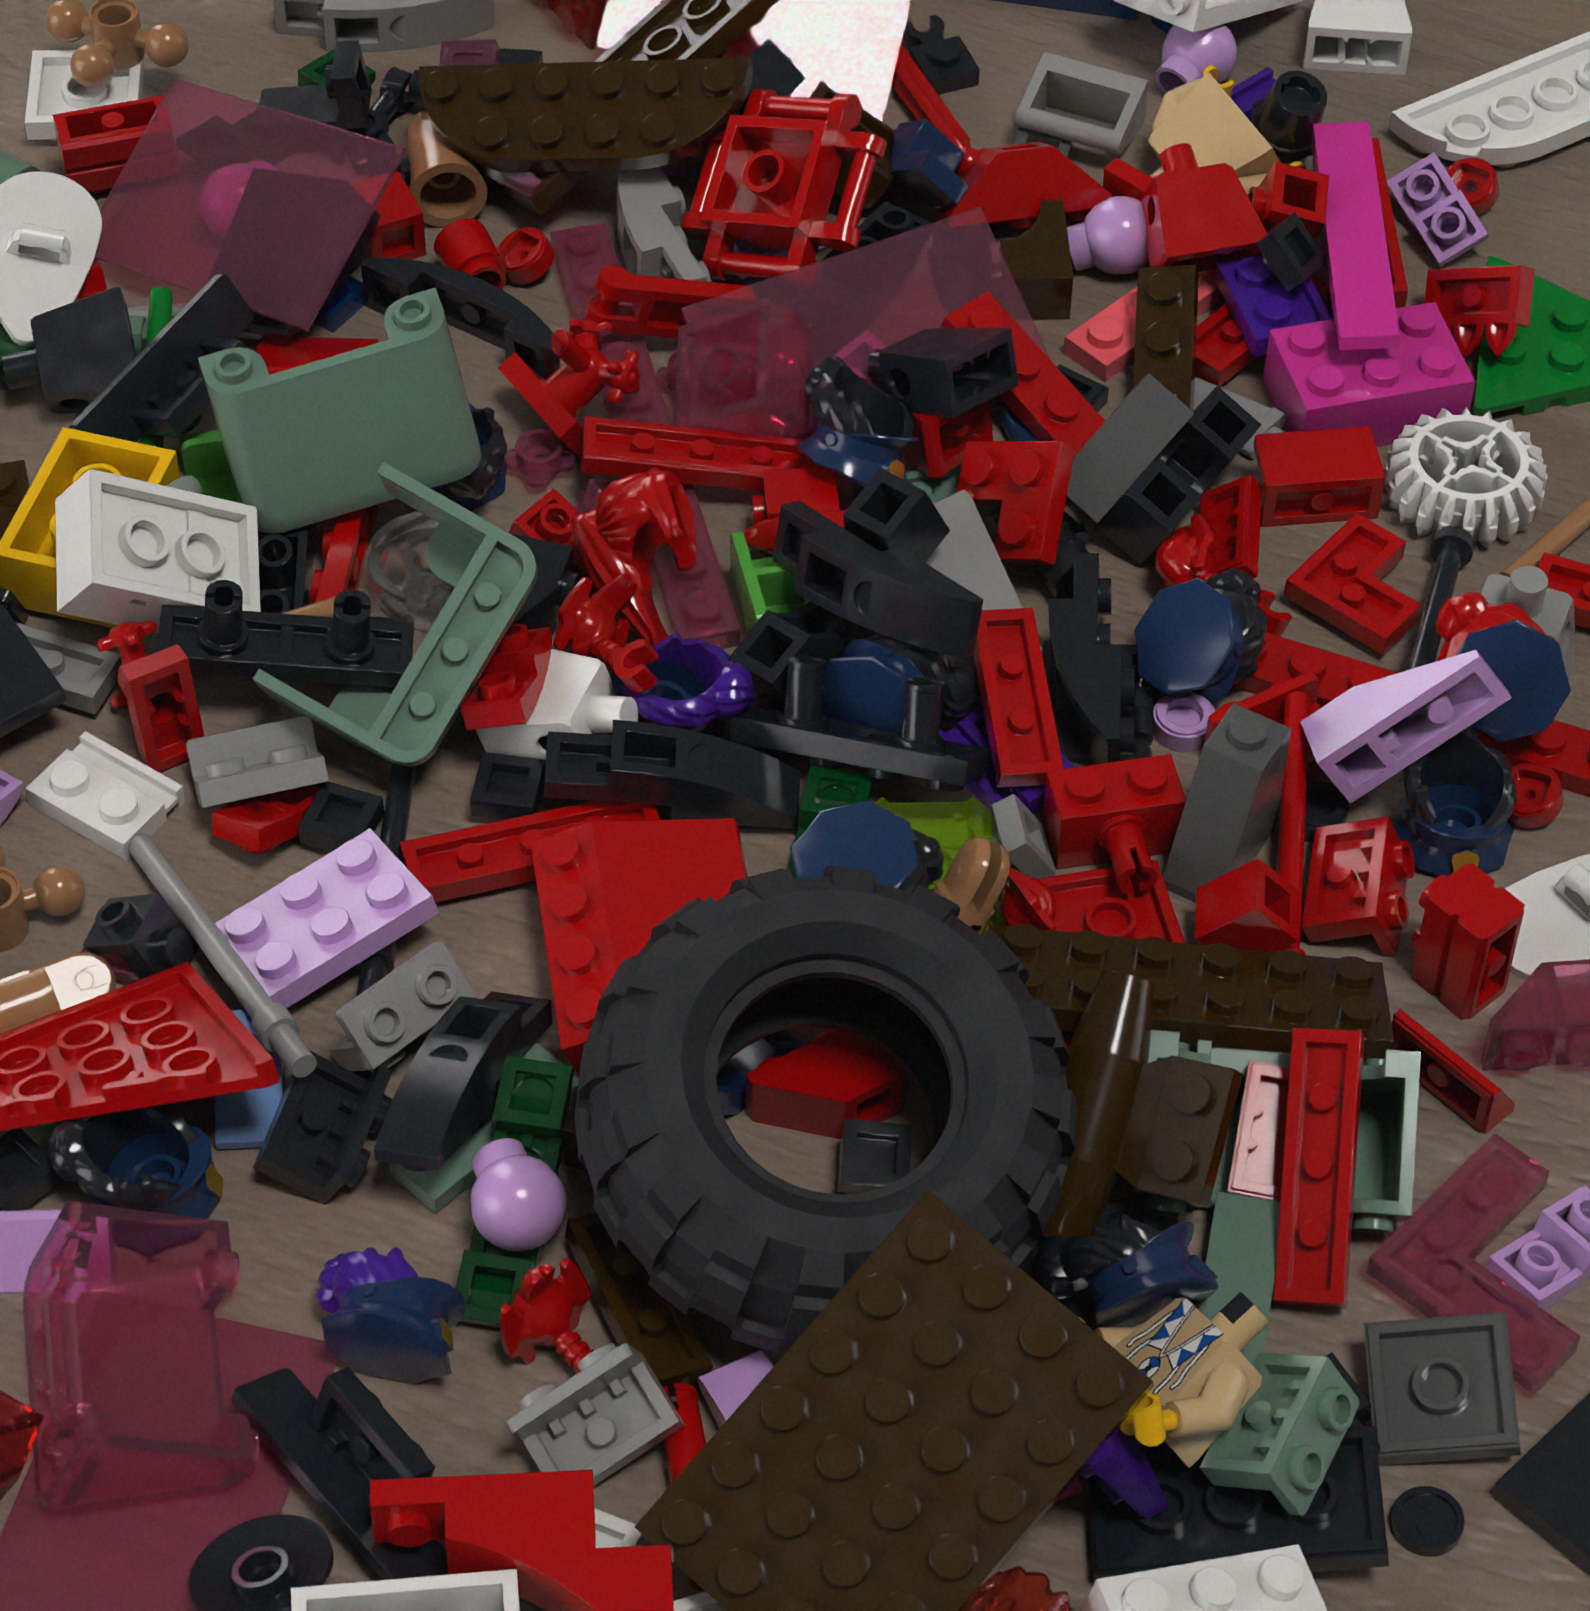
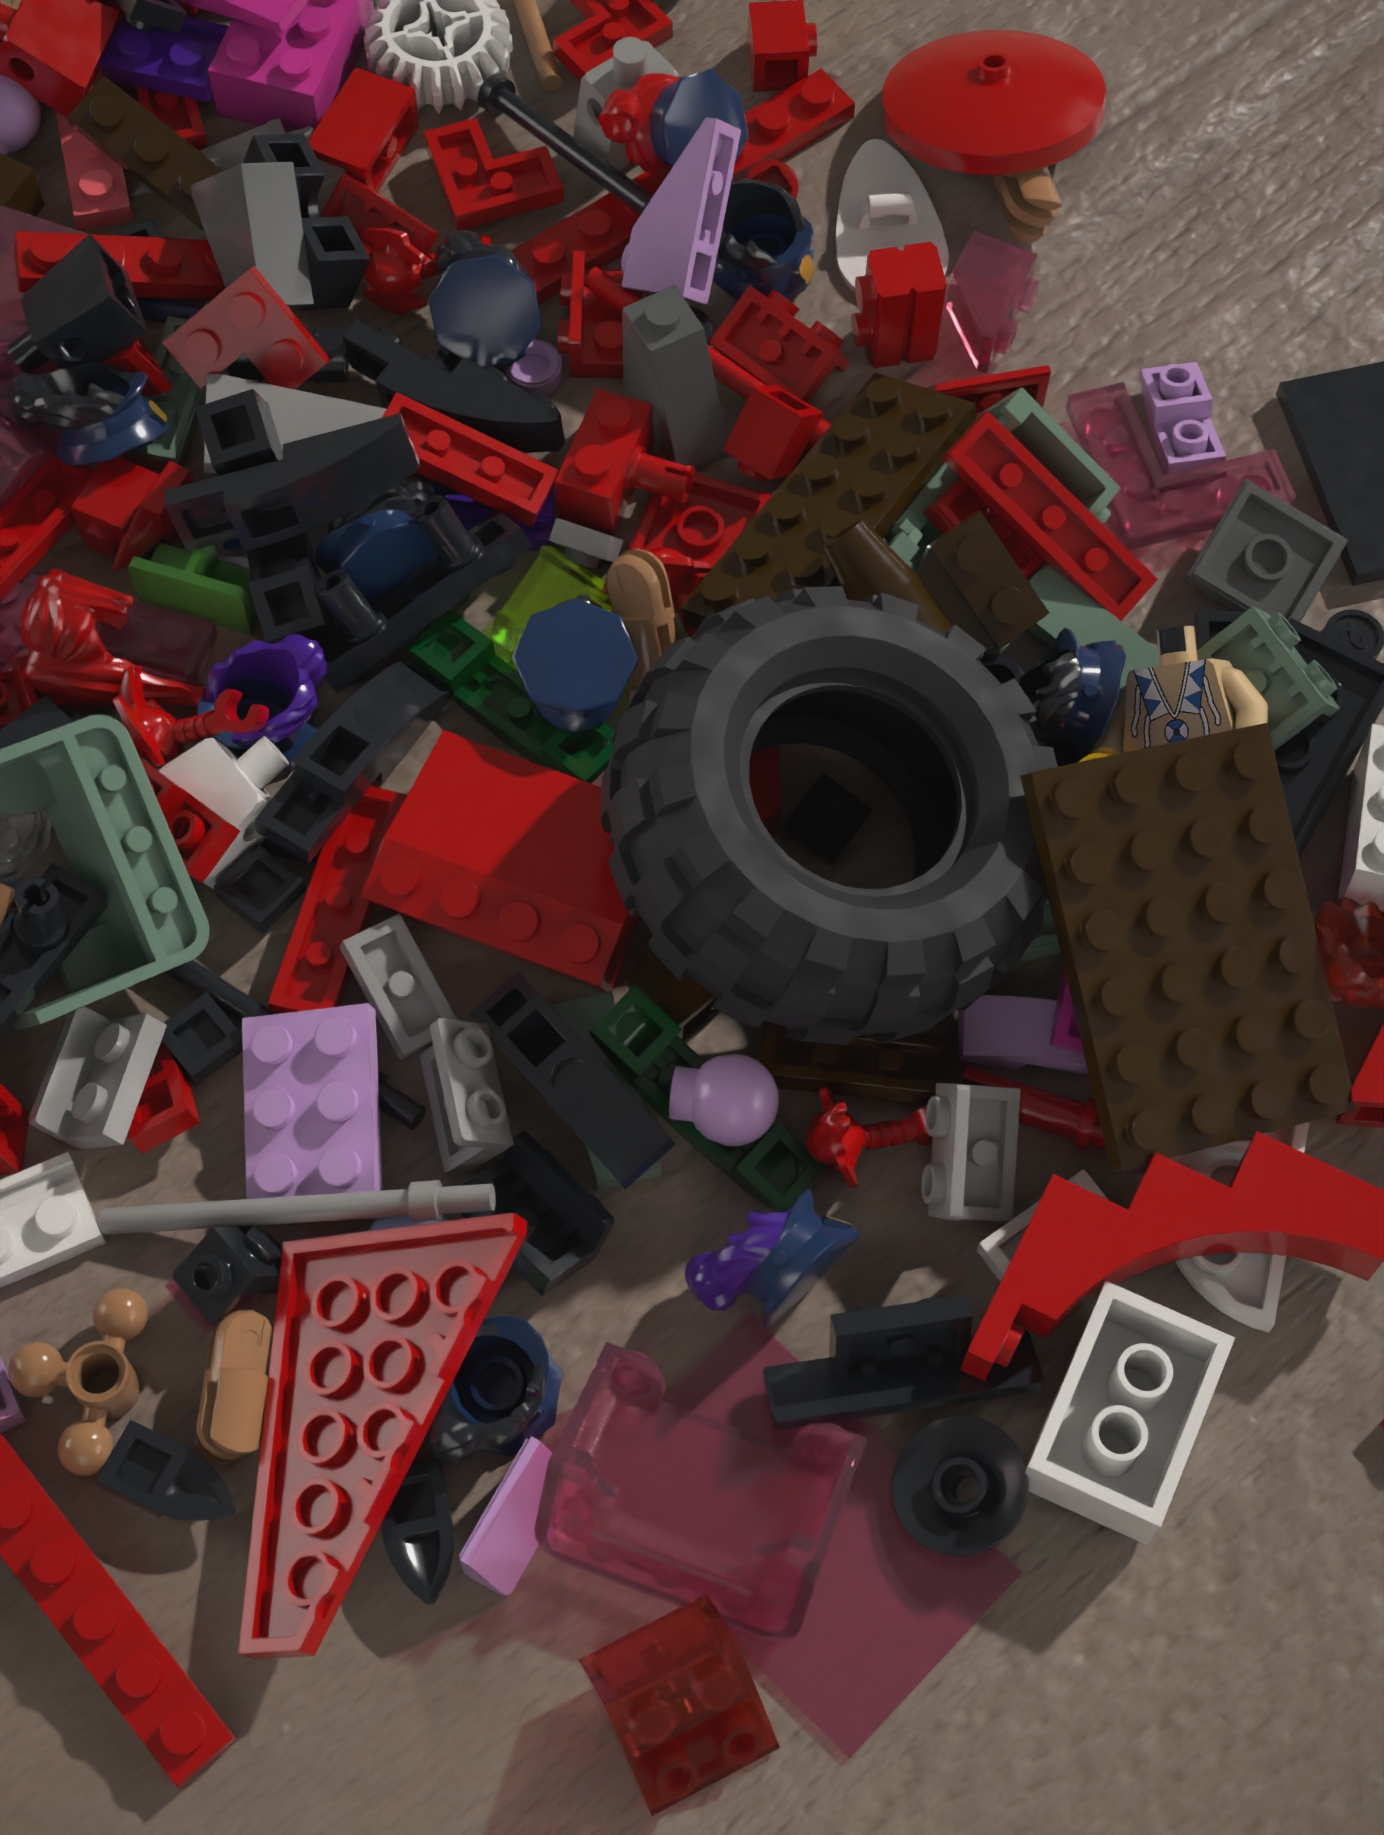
camera: 60 degrees left, 15 degrees up
(483, 916) = (397, 984): none -> light grey plate

